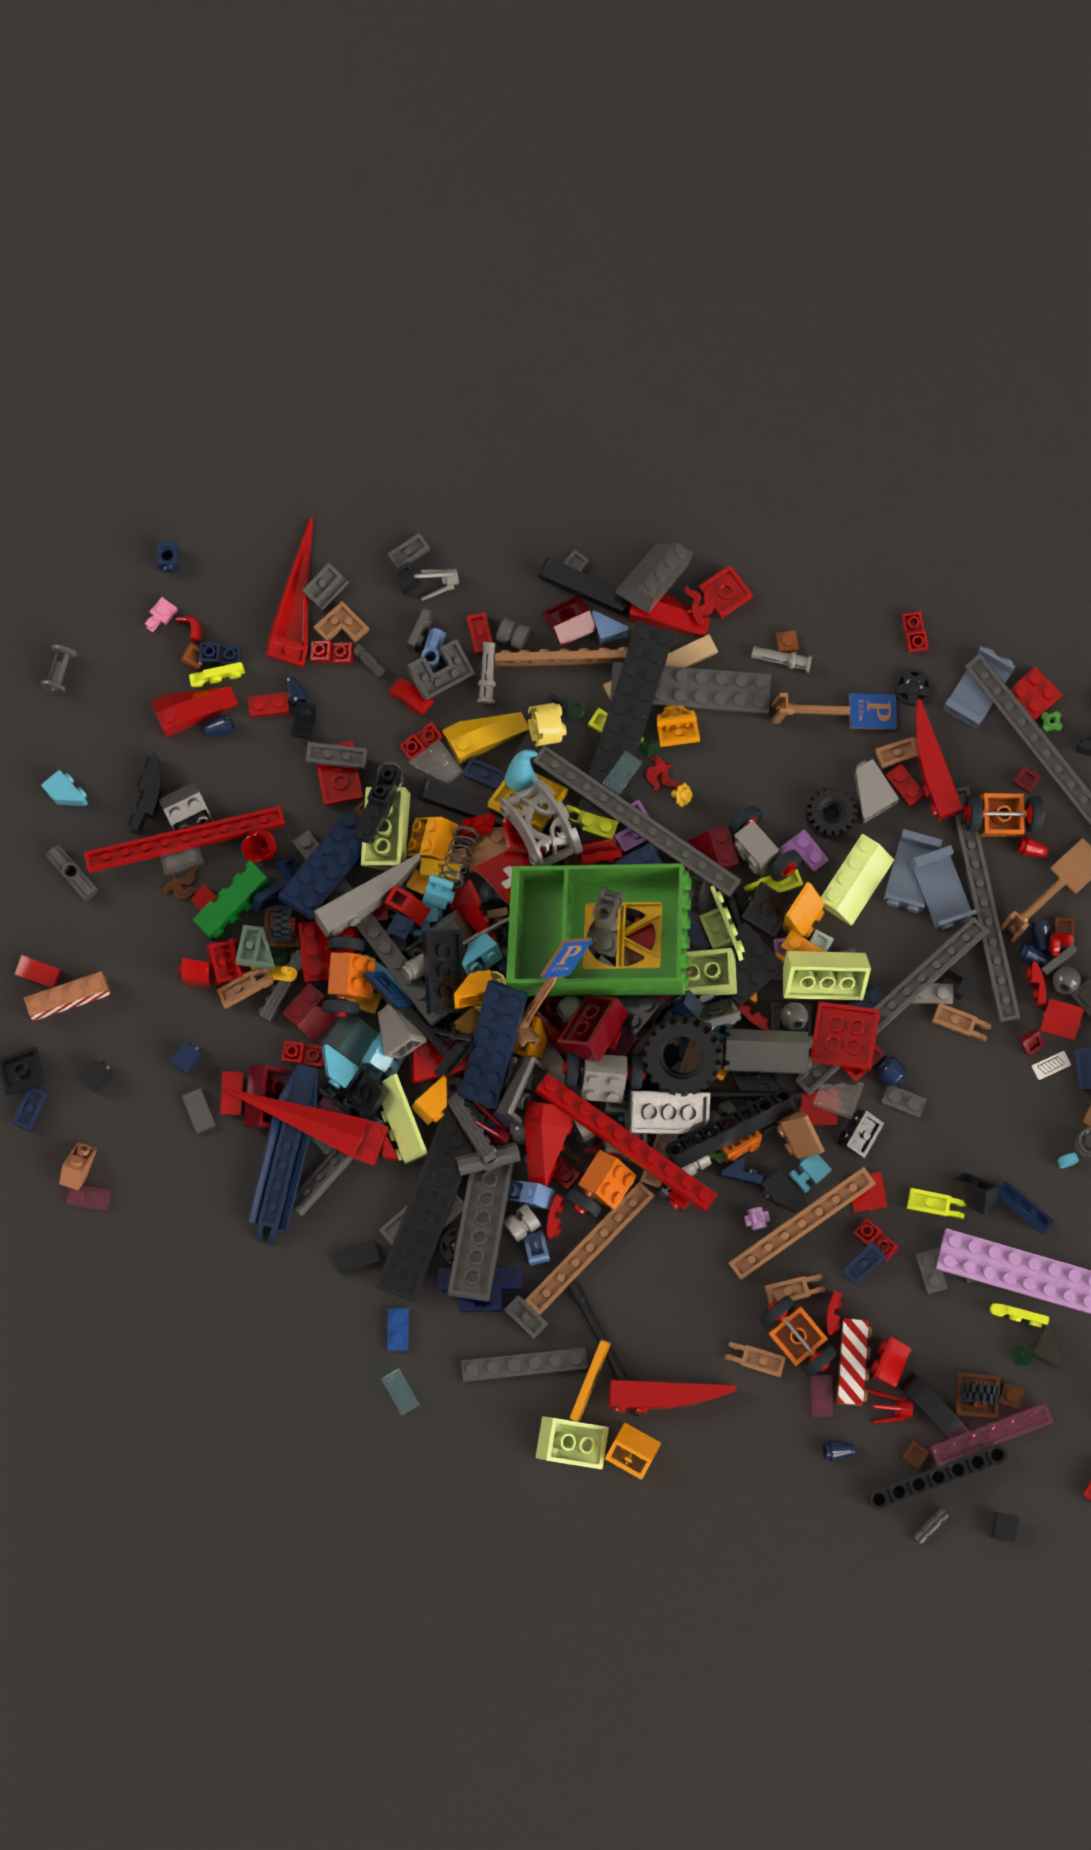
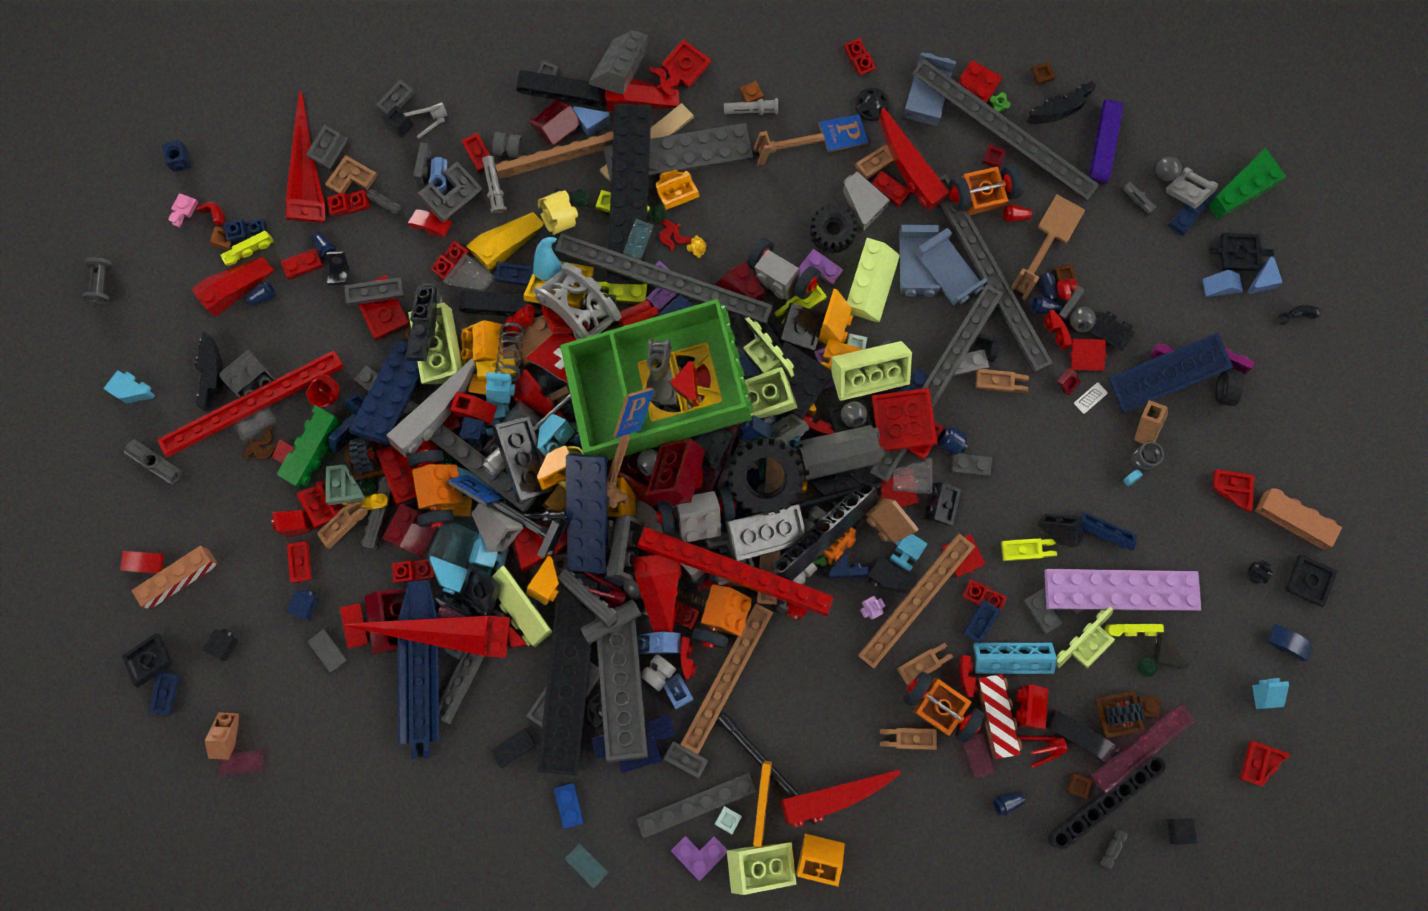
camera: 20 degrees left, 0 degrees up
(192, 1014) = (299, 562): none -> red plate
(512, 1419) = (699, 861): none -> medium lavender plate
(551, 1388) = (728, 820): none -> light aqua tile
(627, 942) = (686, 383): none -> red slope
(887, 1313) = (1015, 661): none -> medium azure fence
(969, 1316) = (1090, 644): none -> yellowish green bracket

